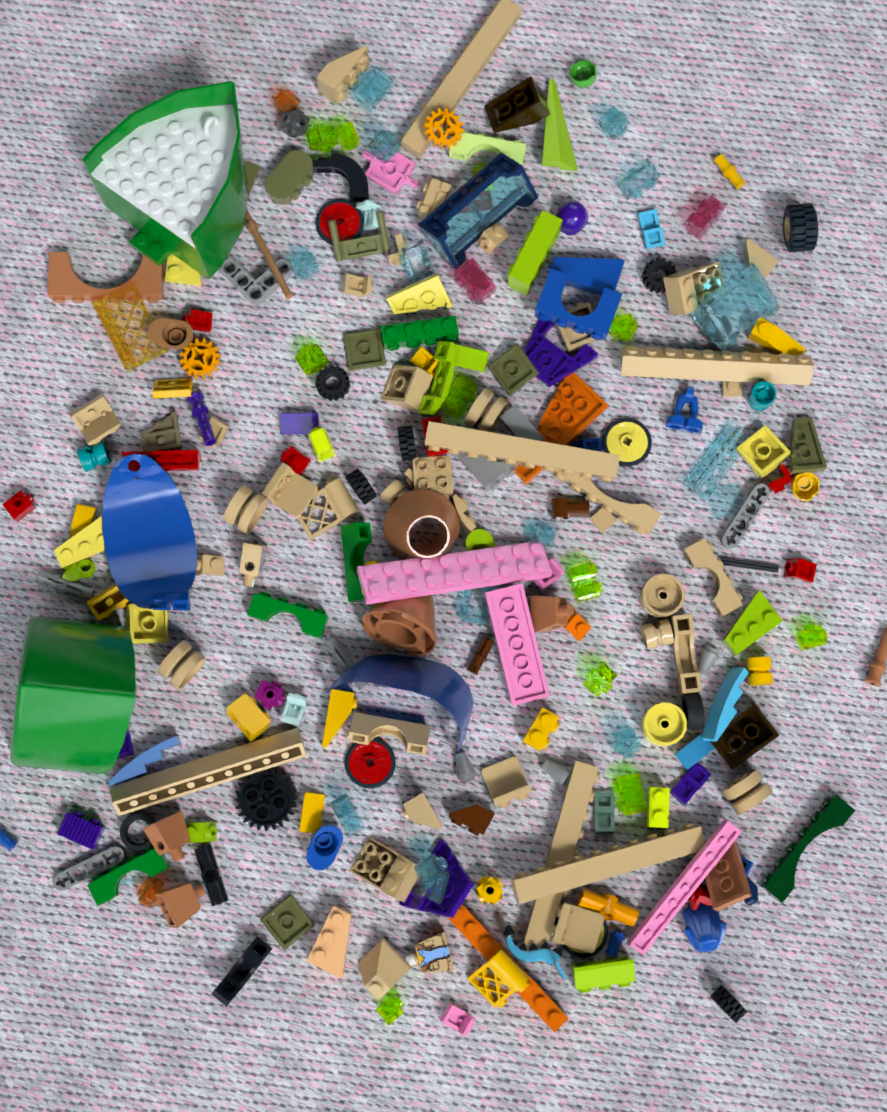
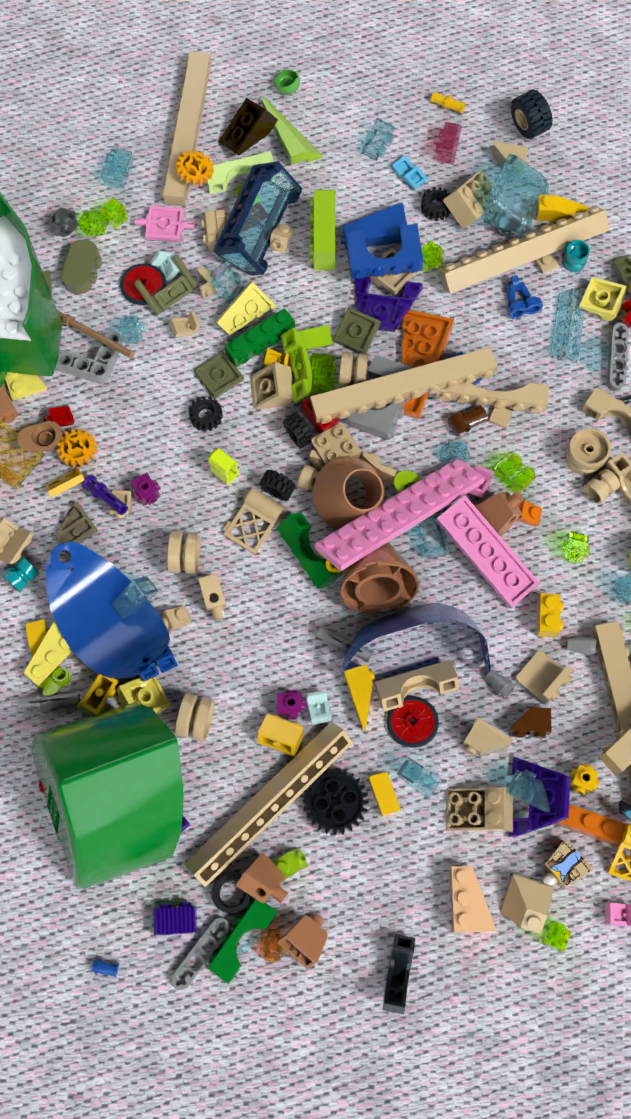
camera: 25 degrees left, 10 degrees down
(140, 764) = (200, 832): medium blue slope -> none
(169, 460) = (96, 541): red fence -> none
(182, 528) = (134, 596): none -> clear light blue slope
(215, 888) = (311, 889): black piece -> none
(237, 426) = (145, 489): none -> magenta brick
(264, 607) = (245, 629): green arch -> none
(286, 101) = (46, 209): clear orange head -> none
(287, 922) = (415, 907): olive tile -> none
(289, 491) = (215, 520): tan bracket -> none
(295, 460) = (205, 493): red bracket -> none
(298, 423) = (192, 460): dark purple slope -> none
(311, 359) = (177, 401): clear neon green brick -> none
(324, 847) = (413, 817): blue piece -> none
(342, 74) = (85, 166): tan slope -> none
(350, 170) = (128, 238): black arch -> none
(384, 145) = (150, 202): clear light blue brick -> none
(474, 281) = (285, 276): clear pink brick -> none
(480, 655) = (460, 579): reddish brown axle -> none
(573, 216) = (343, 190): dark purple helmet -> none
(614, 123) = (333, 106): clear light blue brick -> none
(633, 431) = (488, 335): light yellow wheel -> none

